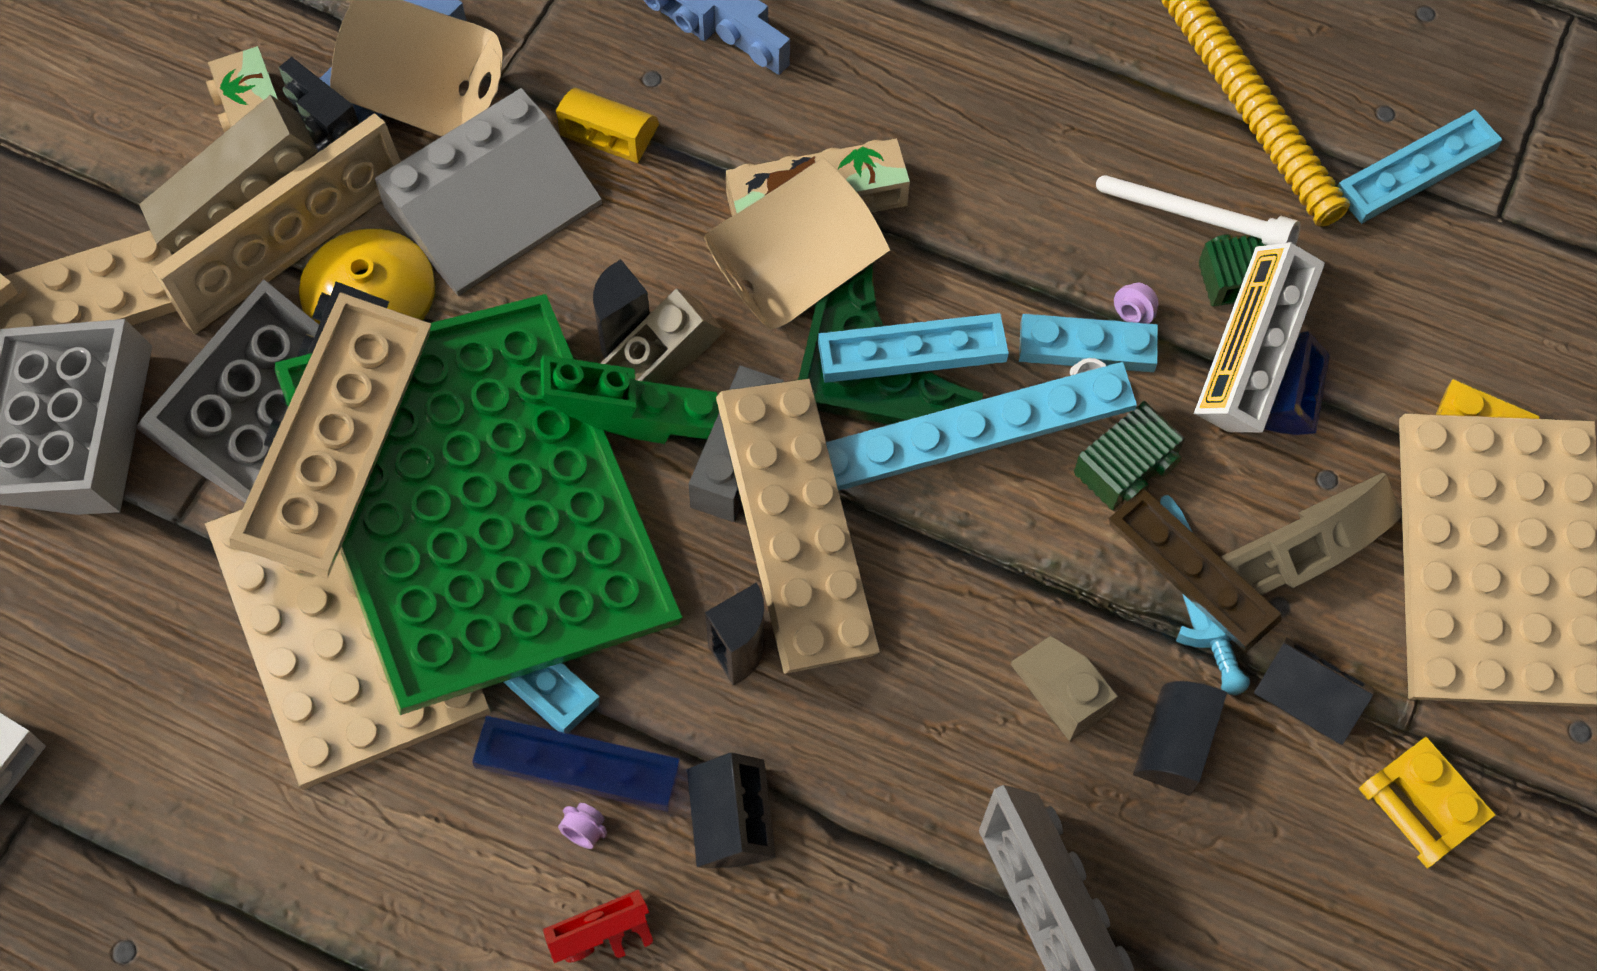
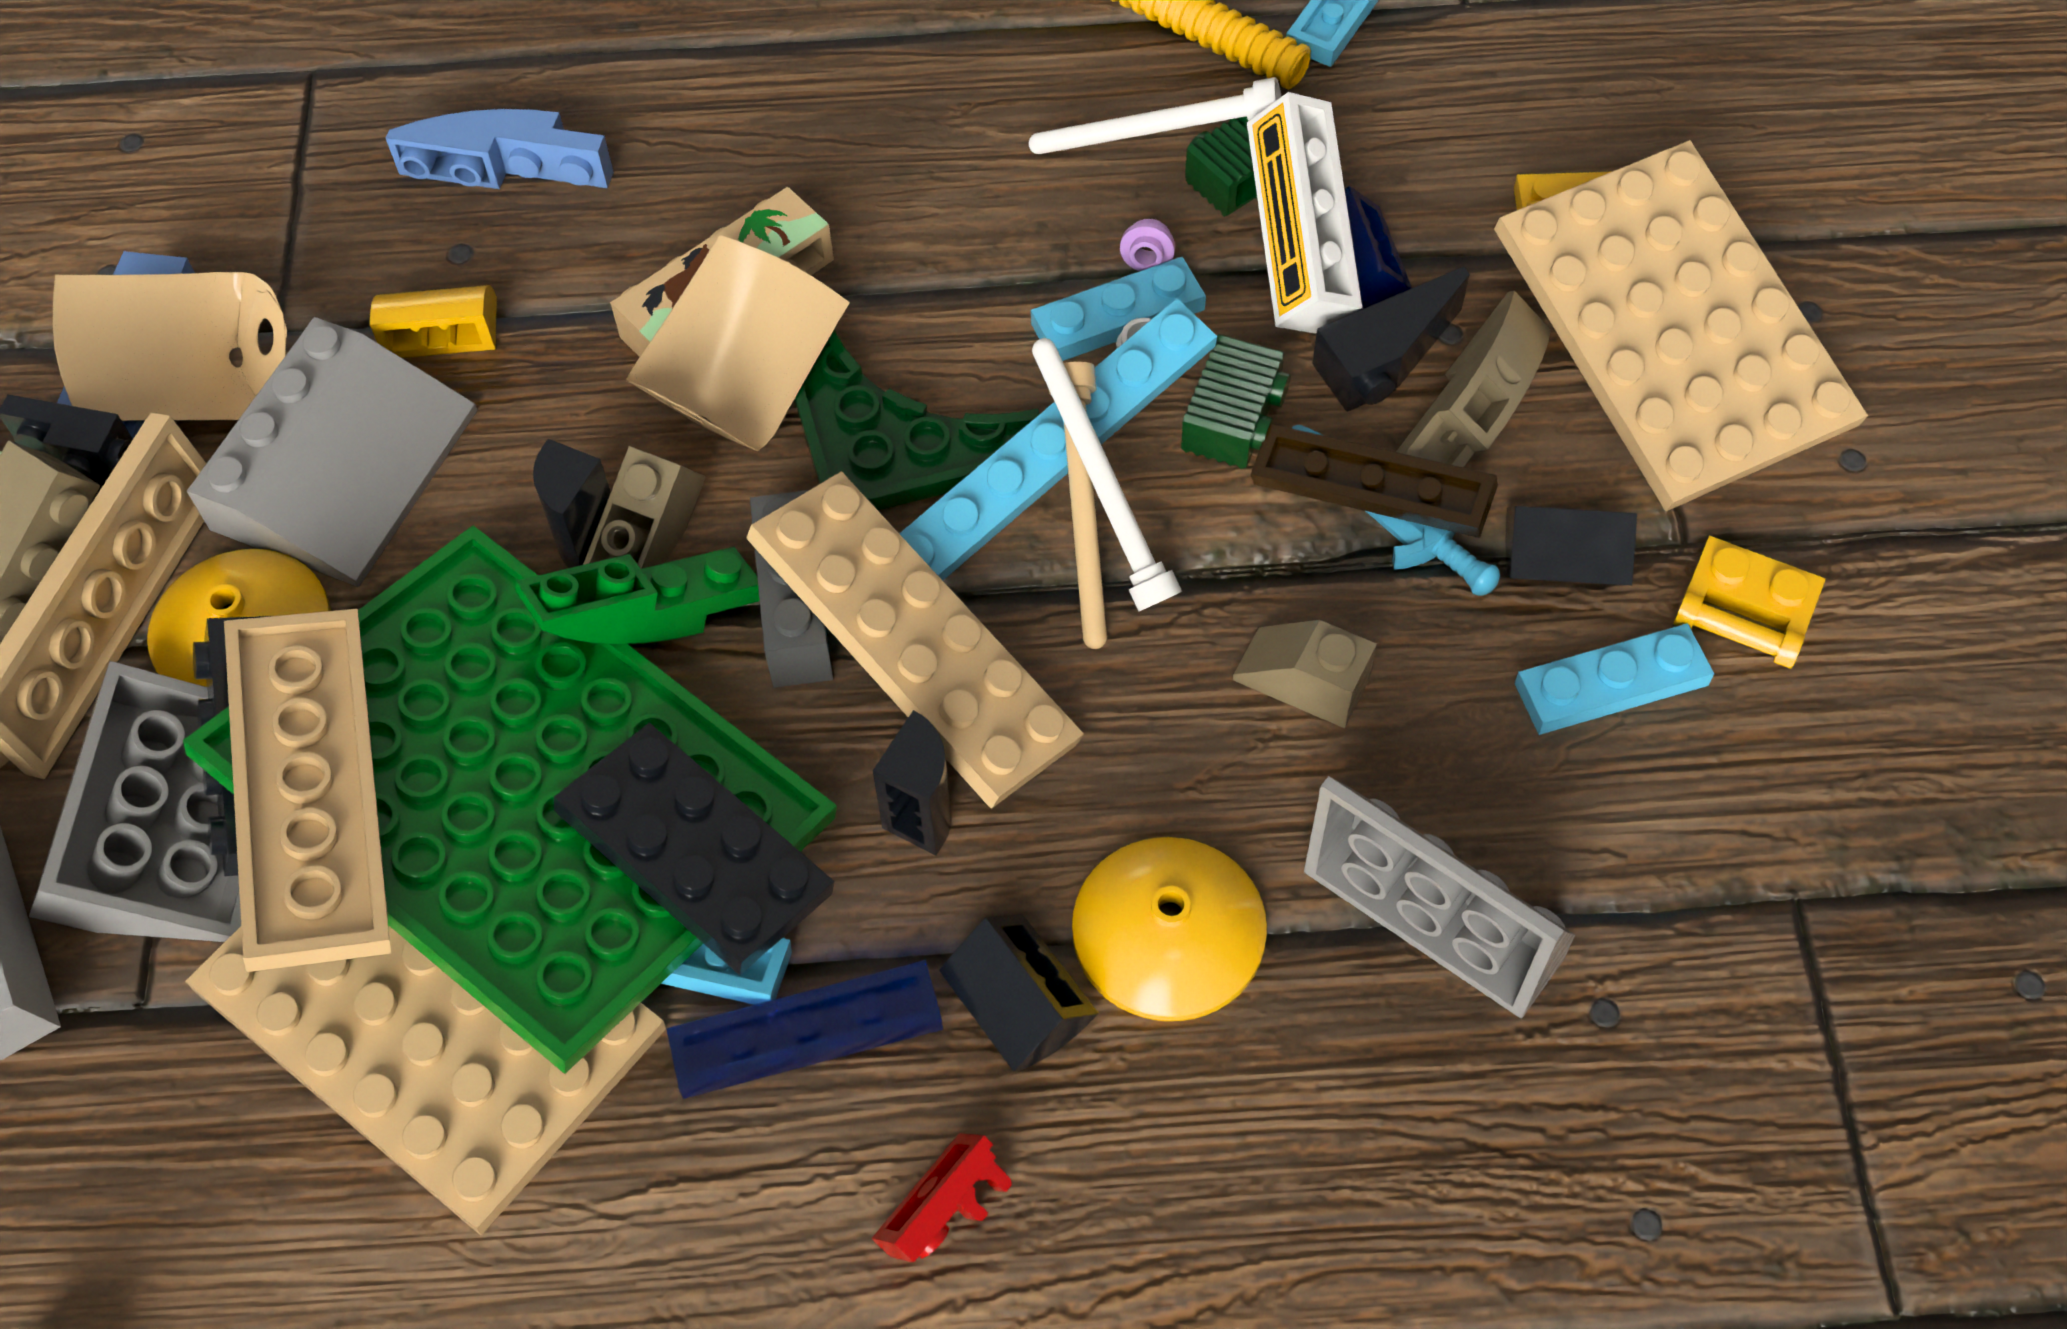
camera: 25 degrees left, 5 degrees down
(566, 601) = (694, 847): none -> black plate
(582, 825) = (852, 1095): lavender plate -> none
(855, 853) = (1163, 962): none -> yellow dish
(912, 347) = (931, 394): medium azure plate -> none
(989, 562) = (1150, 578): none -> white piece
(1004, 398) = (1085, 522): none -> tan piece
(1180, 735) = (1461, 659): black brick -> none
(1262, 466) = (1380, 345): none -> black slope
(1288, 807) = (1613, 678): none -> medium azure plate

